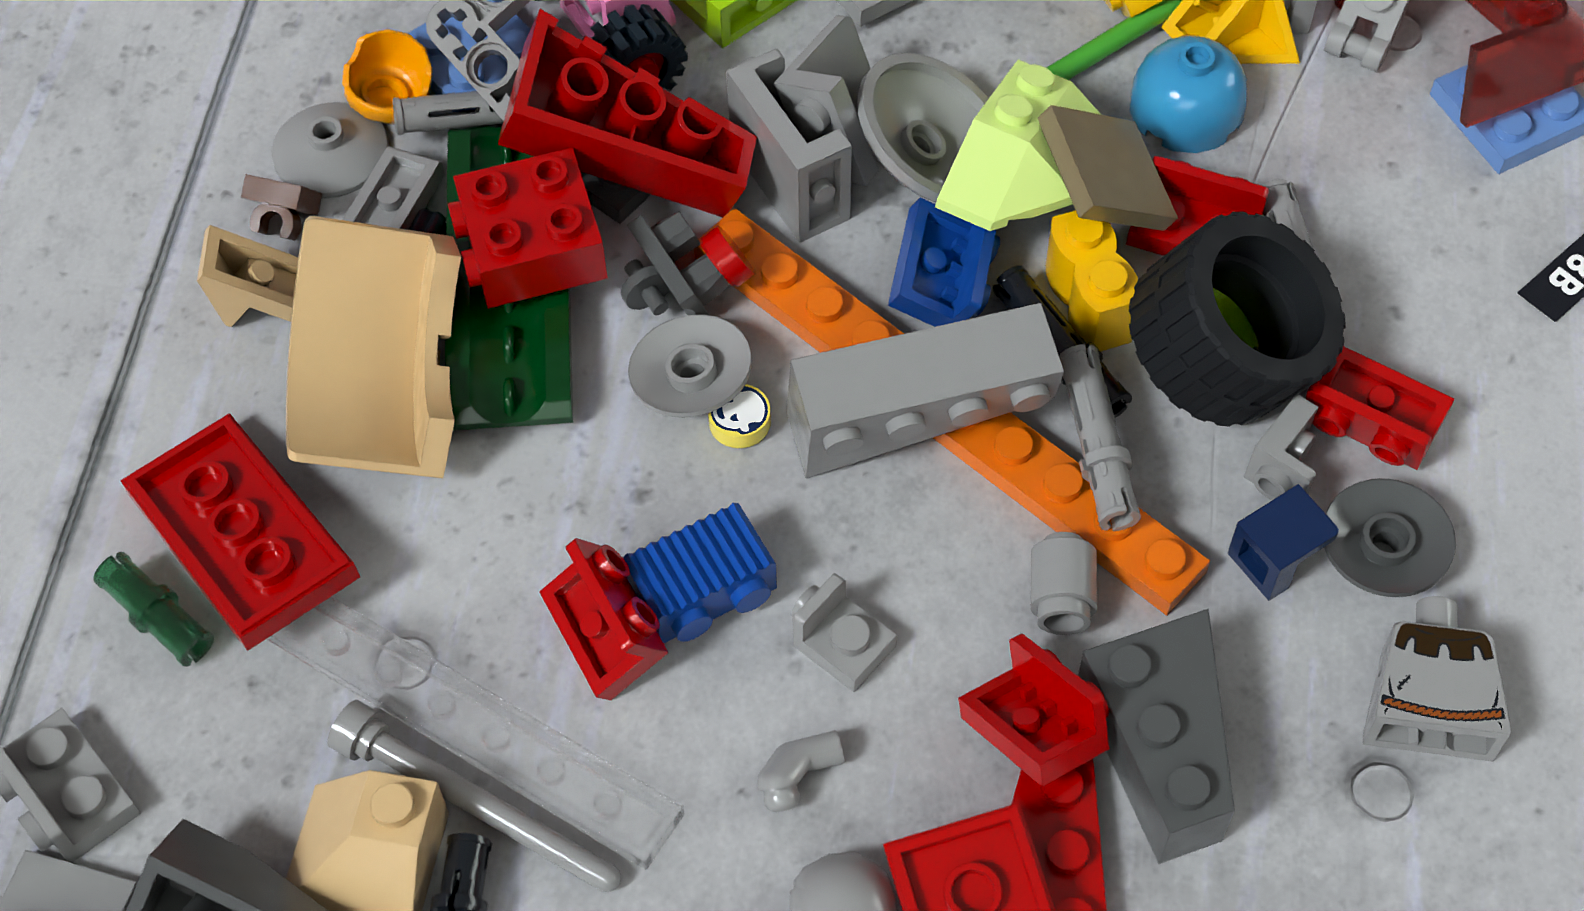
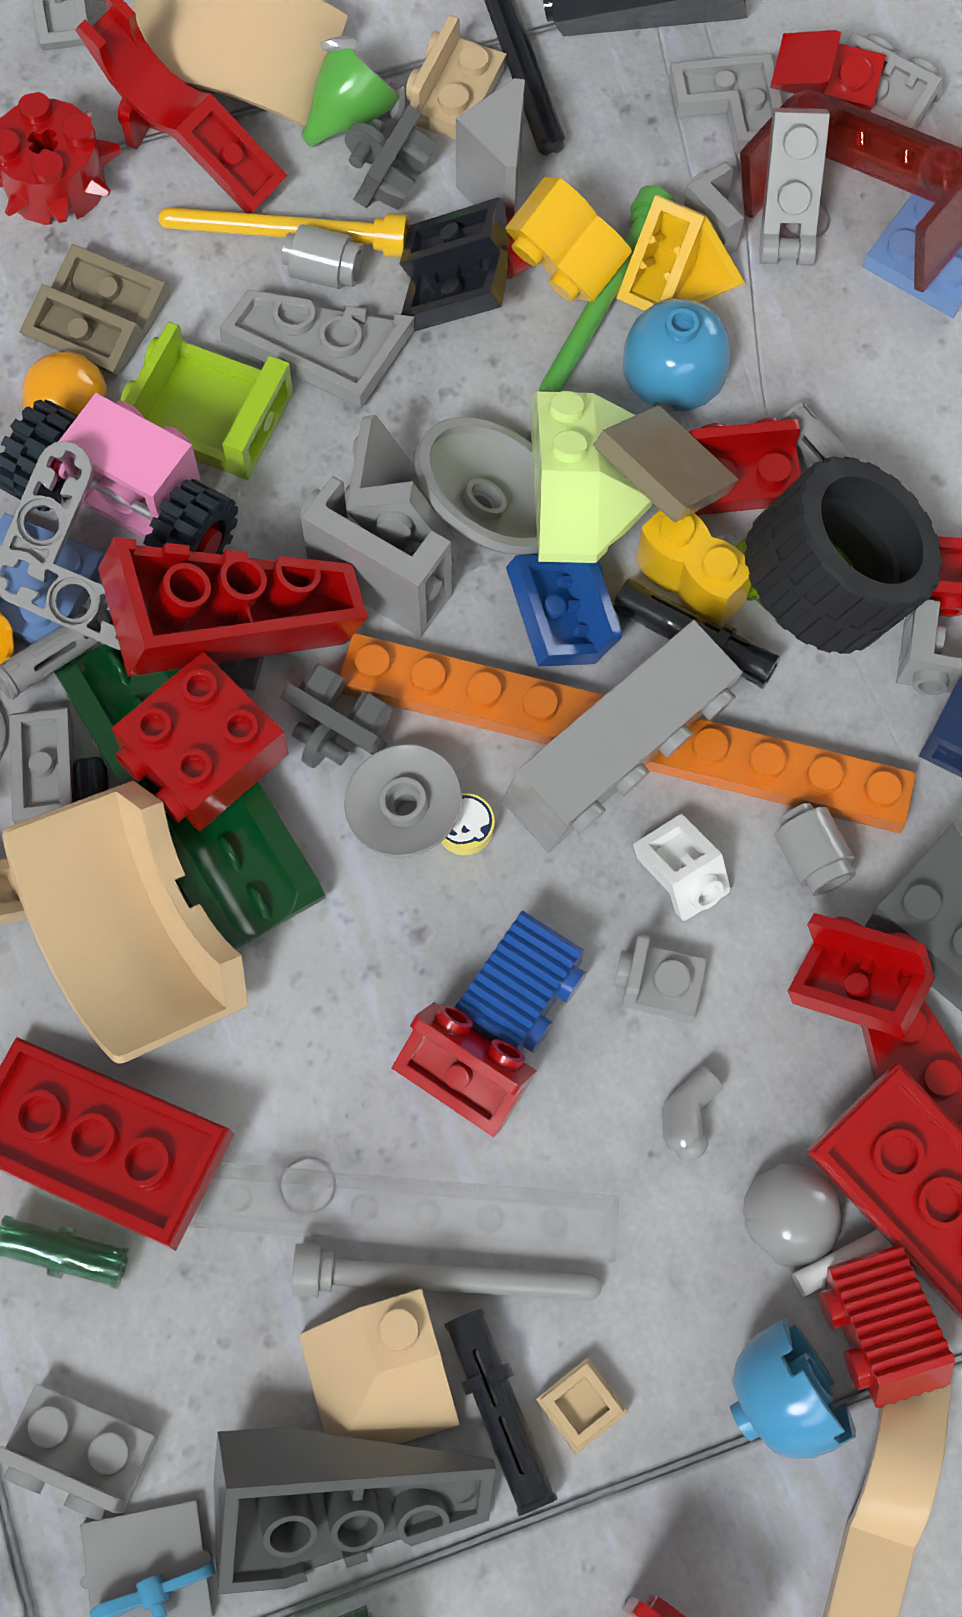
camera: 30 degrees left, 10 degrees up
(726, 256) = (384, 687): red tile -> none
(925, 544) = (684, 866): none -> white bracket
(1104, 459) = (791, 720): light grey pin -> none

